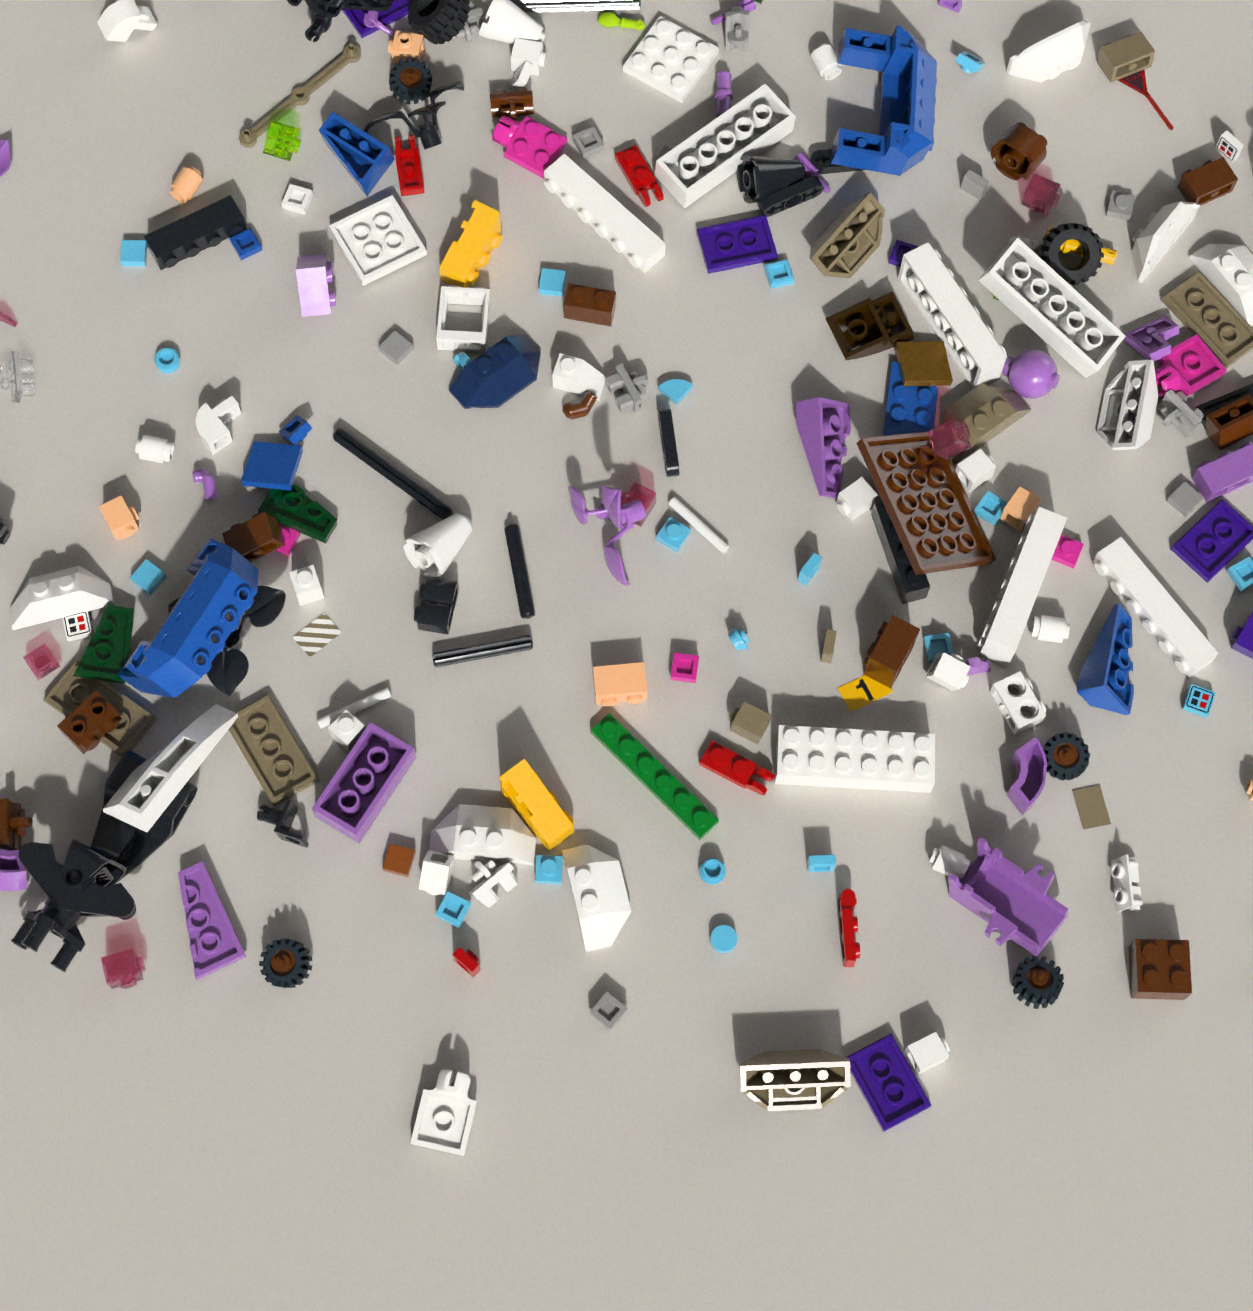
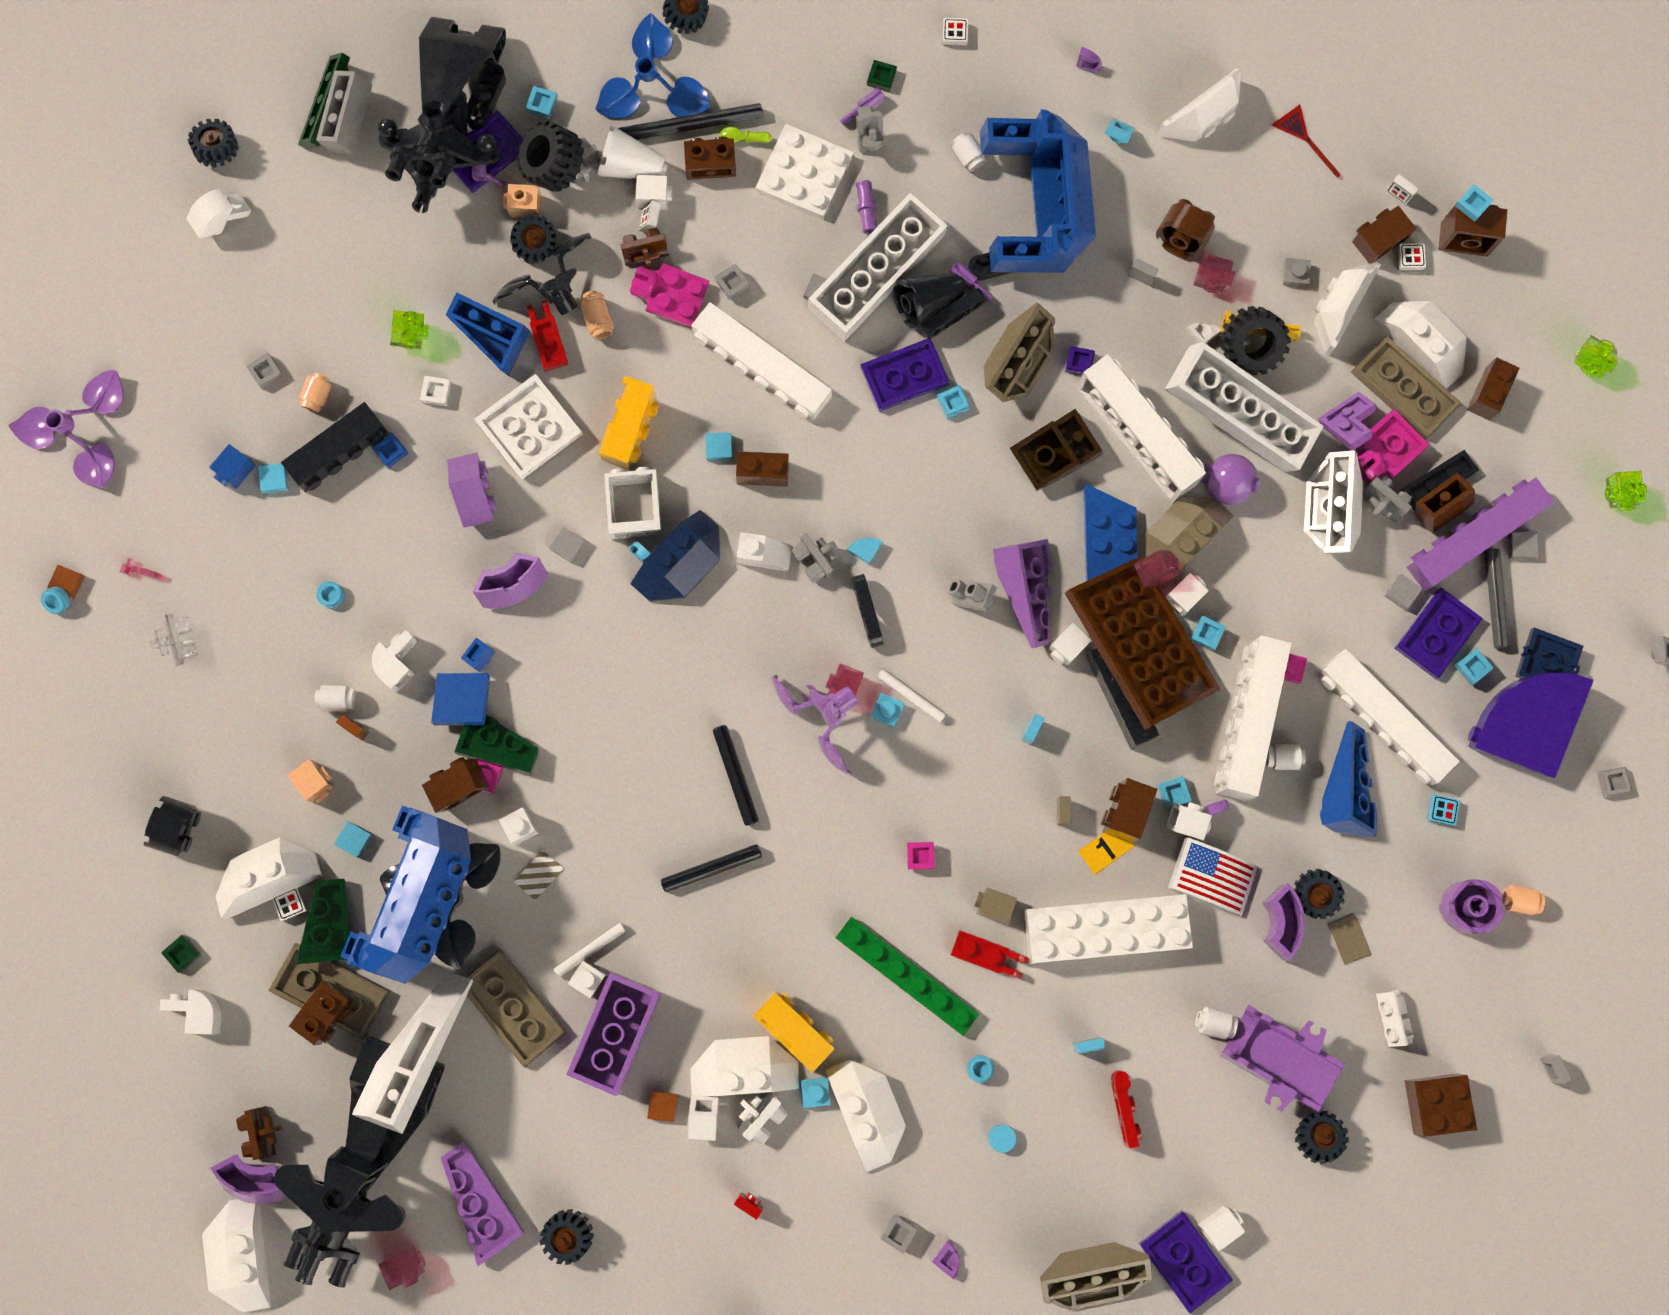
camera: 10 degrees left, 10 degrees up
(41, 661) = (259, 950): clear pink plate -> none
(98, 236) = (231, 467): none -> blue brick
(143, 161) = (264, 371): none -> light grey tile
(166, 476) = (352, 727): none -> dark orange tile
(208, 483) = (397, 726): medium lavender arm -> none
(249, 137) = (372, 327): dark tan piece -> none
(283, 822) = (537, 1085): black bracket -> none
(337, 369) = (510, 582): none -> medium lavender brick
(392, 474) = (587, 687): black axle -> none
(437, 605) = (657, 827): black brick -> none
(438, 545) = (648, 761): white cone -> none
(453, 909) = (726, 1151): medium azure plate -> none
(457, 153) = (596, 315): none -> light nougat head
(581, 409) = (770, 587): reddish brown arm -> none
(585, 35) = (710, 158): none -> reddish brown brick
(620, 683) = (857, 884): light nougat brick -> none
(638, 174) = (790, 310): red hinge -> none
(652, 1044) = (947, 1259): none -> medium lavender tile
(738, 639) = (971, 816): medium azure plate -> none
(770, 440) = (971, 594): none -> light grey hips
(923, 363) = (1117, 483): pearl gold tile -> none
(965, 727) = (1213, 876): none -> slope
(1012, 704) = (1258, 847): white brick -> none
(1019, 508) = (1239, 631): light nougat brick -> none
(1125, 56) = (1281, 101): dark tan brick -> none
(1200, 791) = (1487, 906): none -> medium lavender brick
(1231, 206) = (1411, 256): none -> white tile

